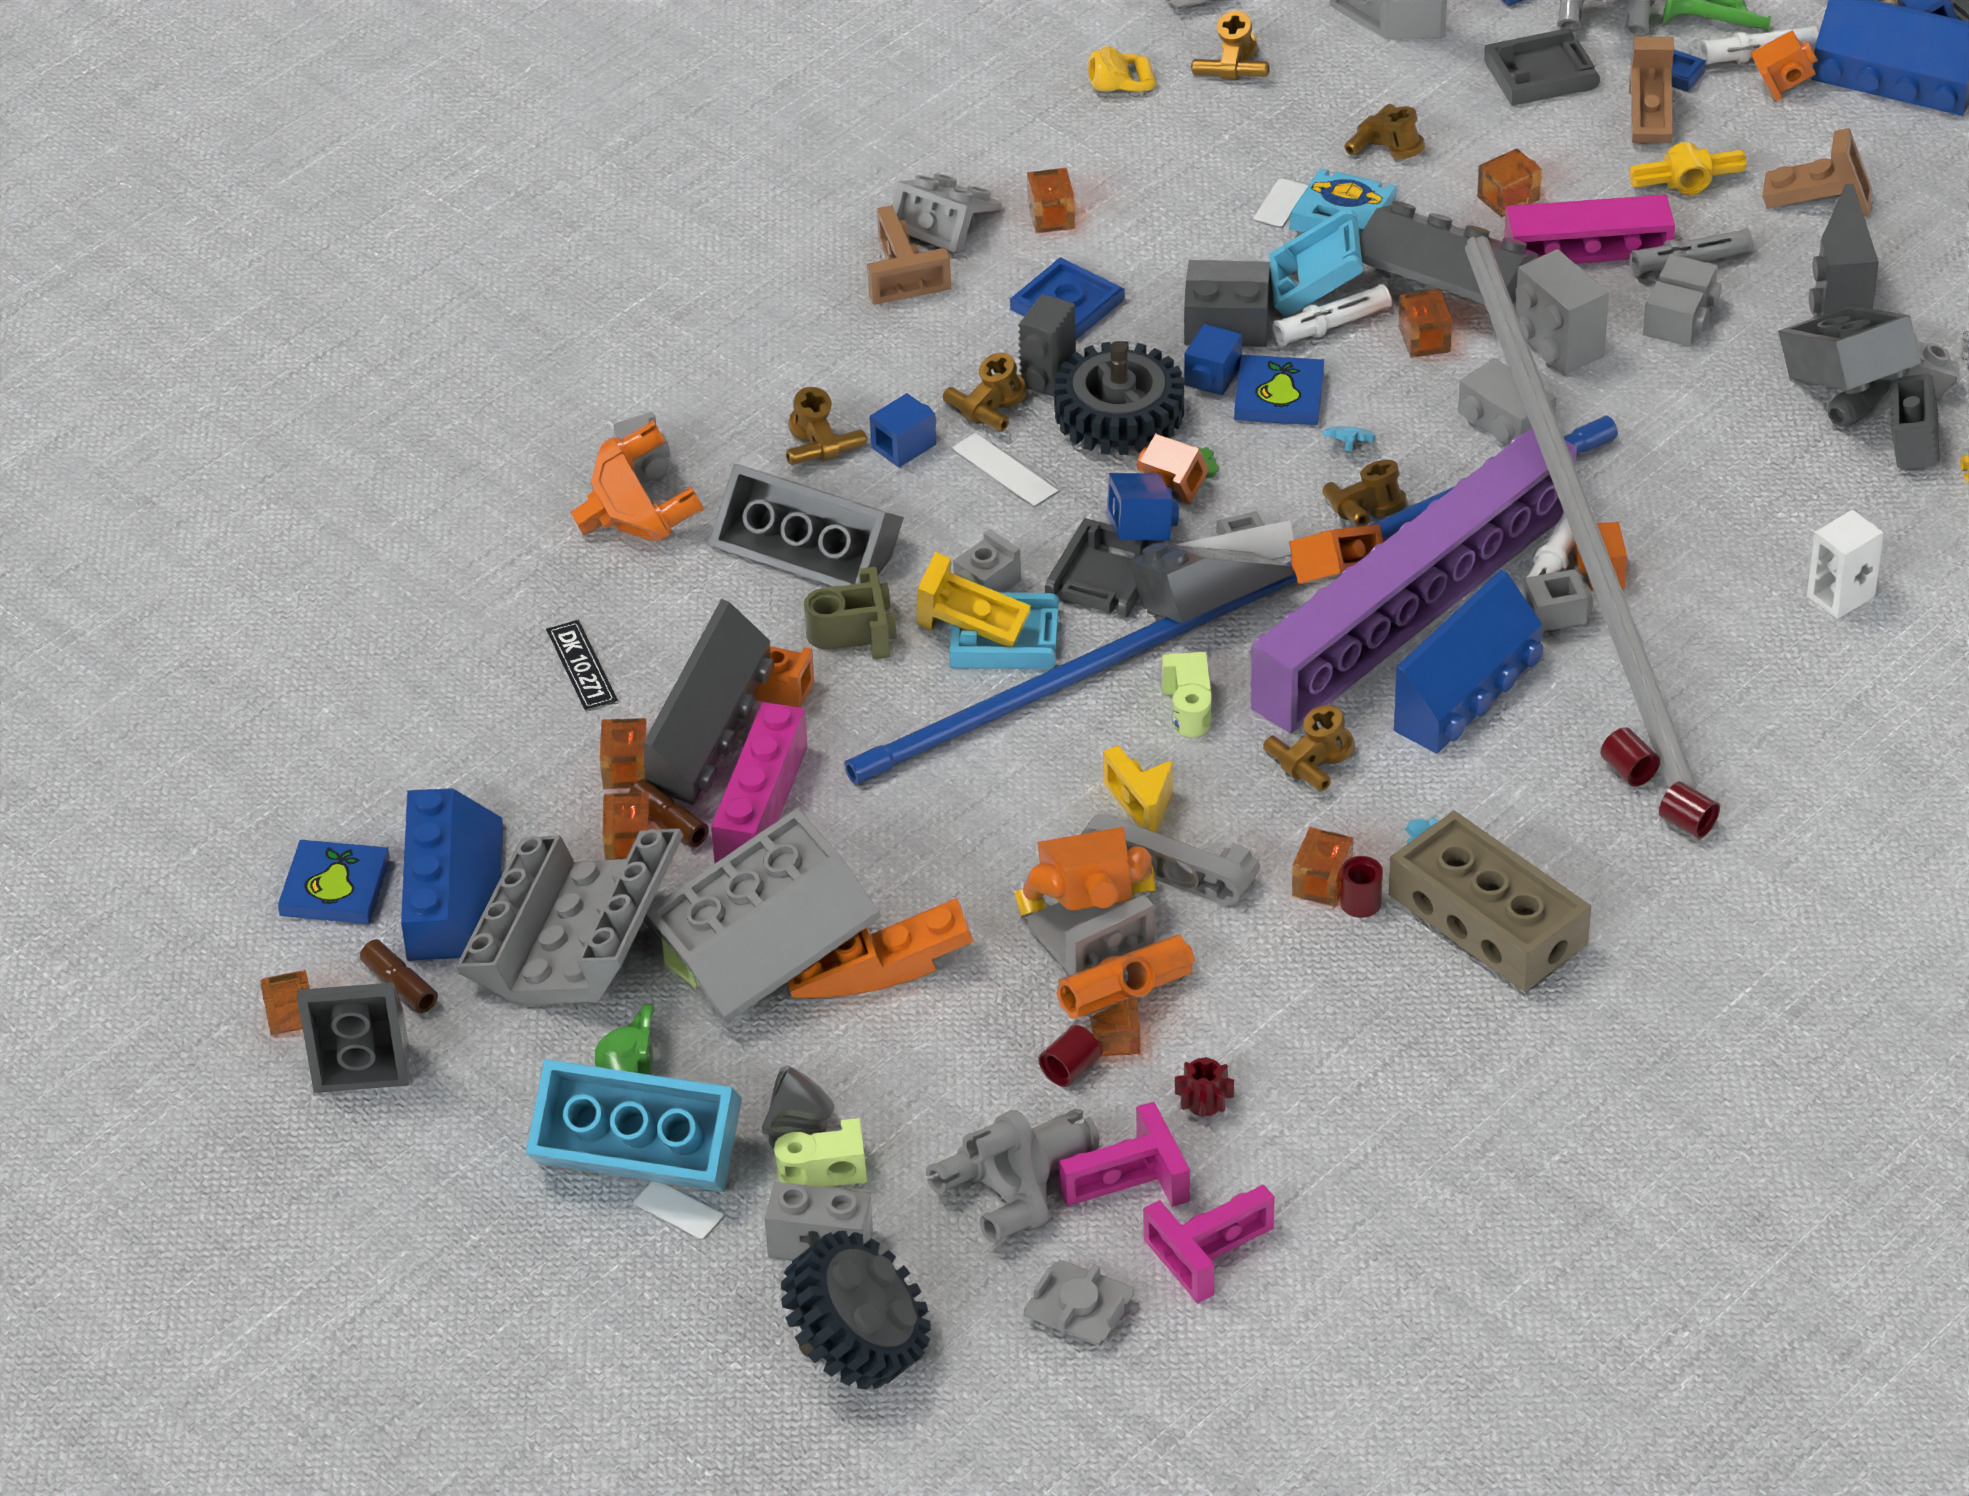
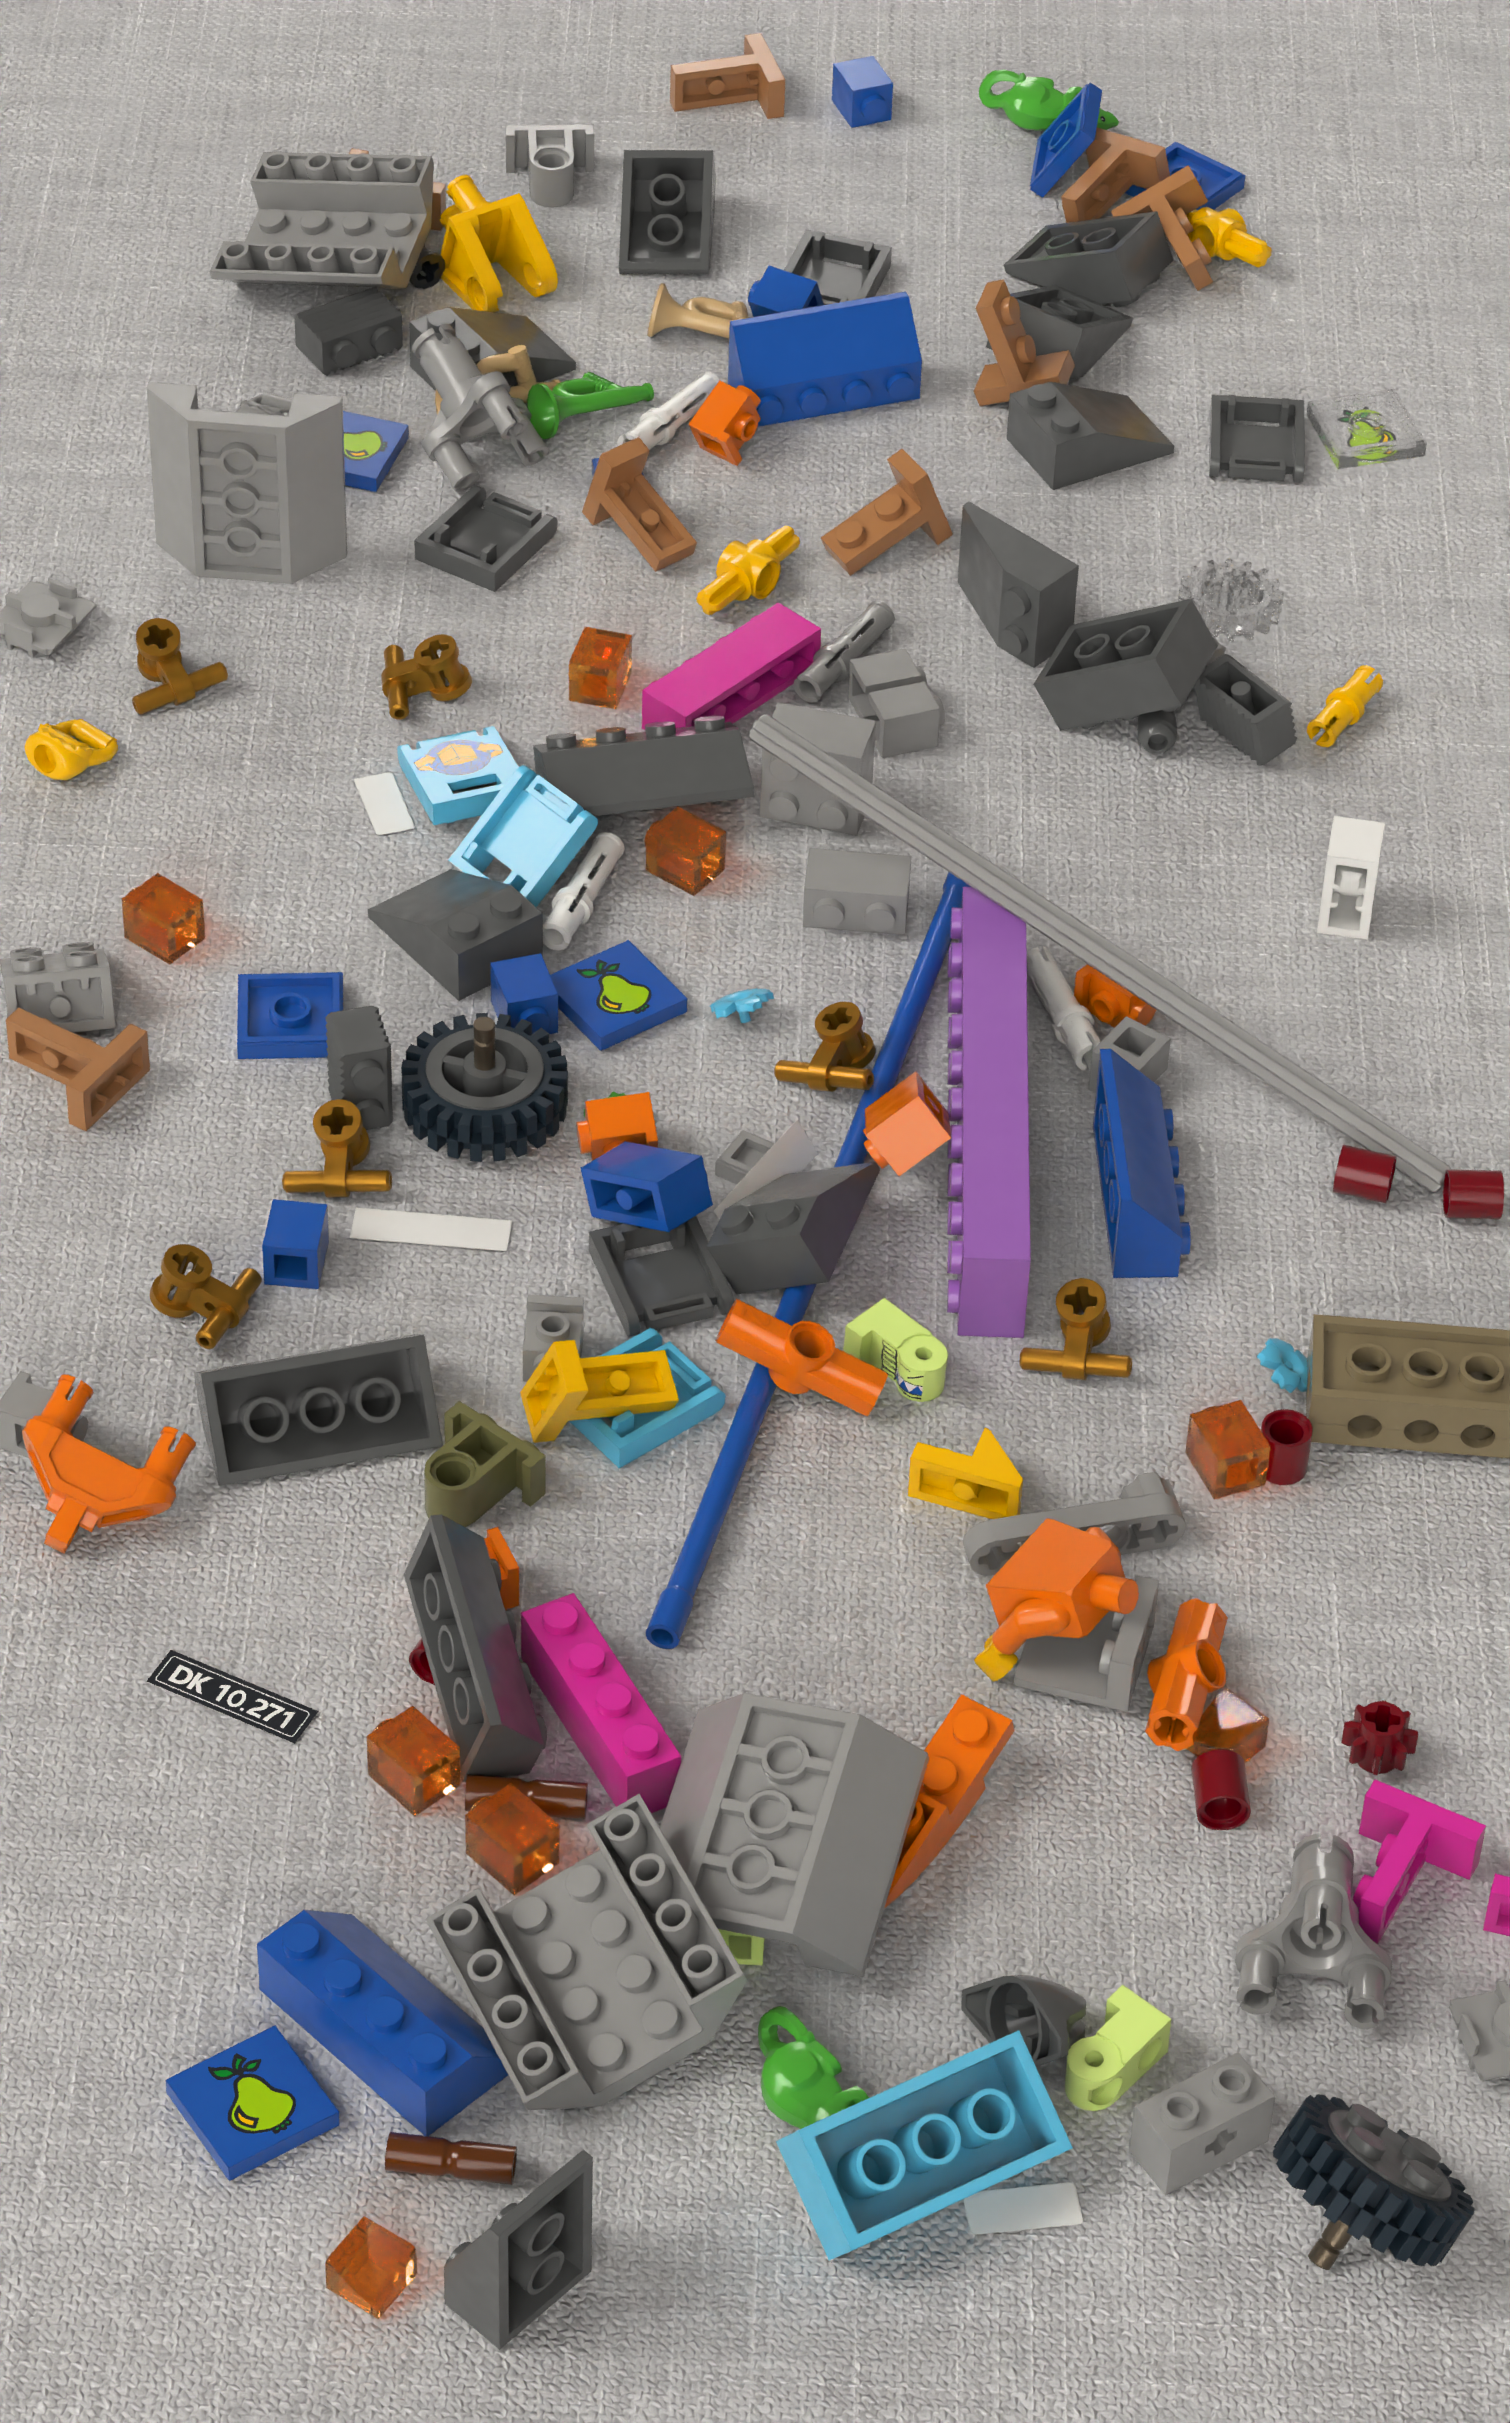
camera: 45 degrees left, 0 degrees up
(1100, 637) = (801, 1357): none -> orange piece

